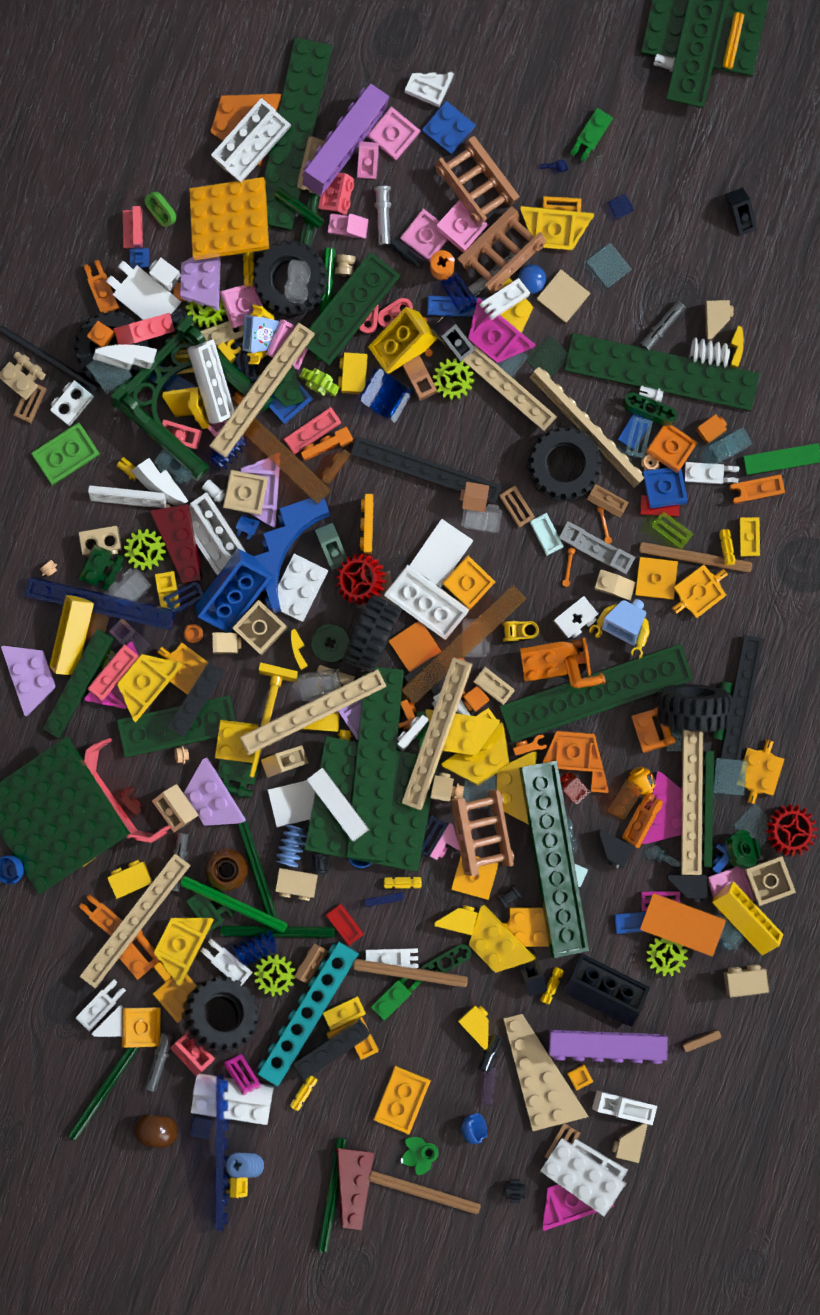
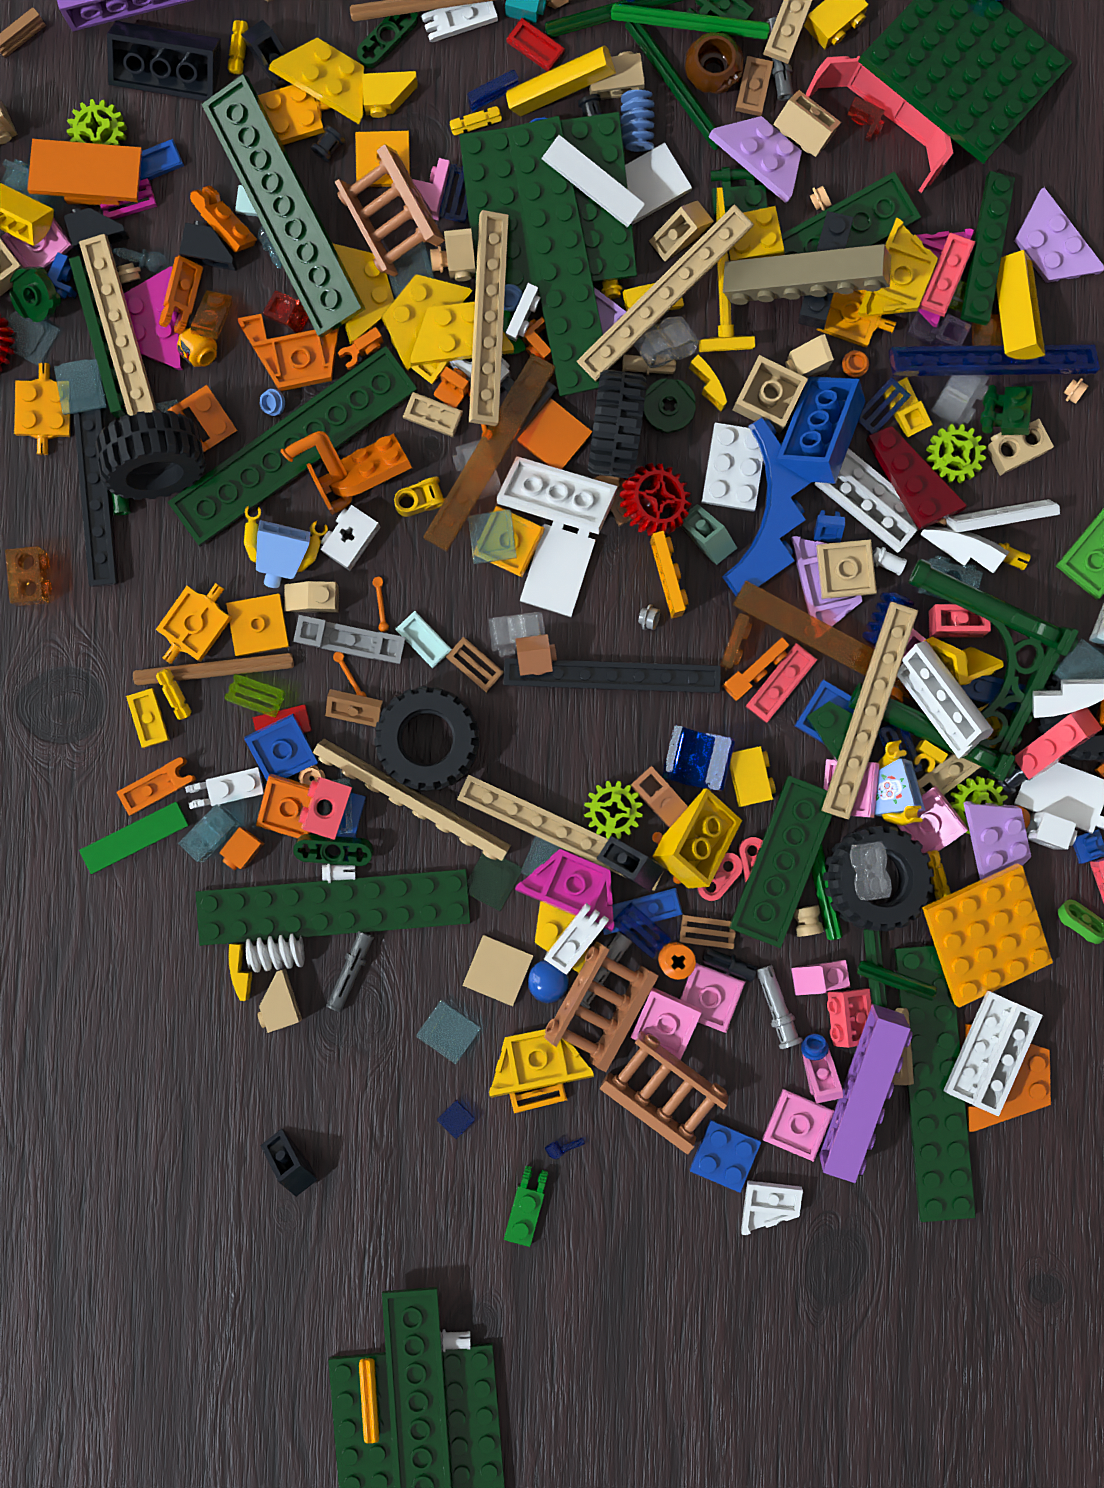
camera: 165 degrees right, 0 degrees up
(202, 848) = (754, 86): none -> medium nougat plate
(213, 694) = (807, 274): none -> dark tan brick
(319, 382) = (794, 748): lime gear -> none
(337, 888) = (560, 81): none -> yellow brick
(366, 180) = (814, 1047): none -> blue plate
(388, 502) = (649, 617): none -> light grey plate
(414, 748) = (512, 297): none -> medium blue plate
(429, 285) = (684, 928): none -> medium nougat tile
(479, 587) = (492, 536): none -> clear light blue piece
(598, 865) = (222, 219): none -> orange hinge
(601, 727) = (272, 402): none -> medium blue plate
(647, 425) = (327, 824): none -> coral brick
(673, 847) = (128, 273): none -> tan plate
(808, 659) = (20, 577): none -> clear orange brick

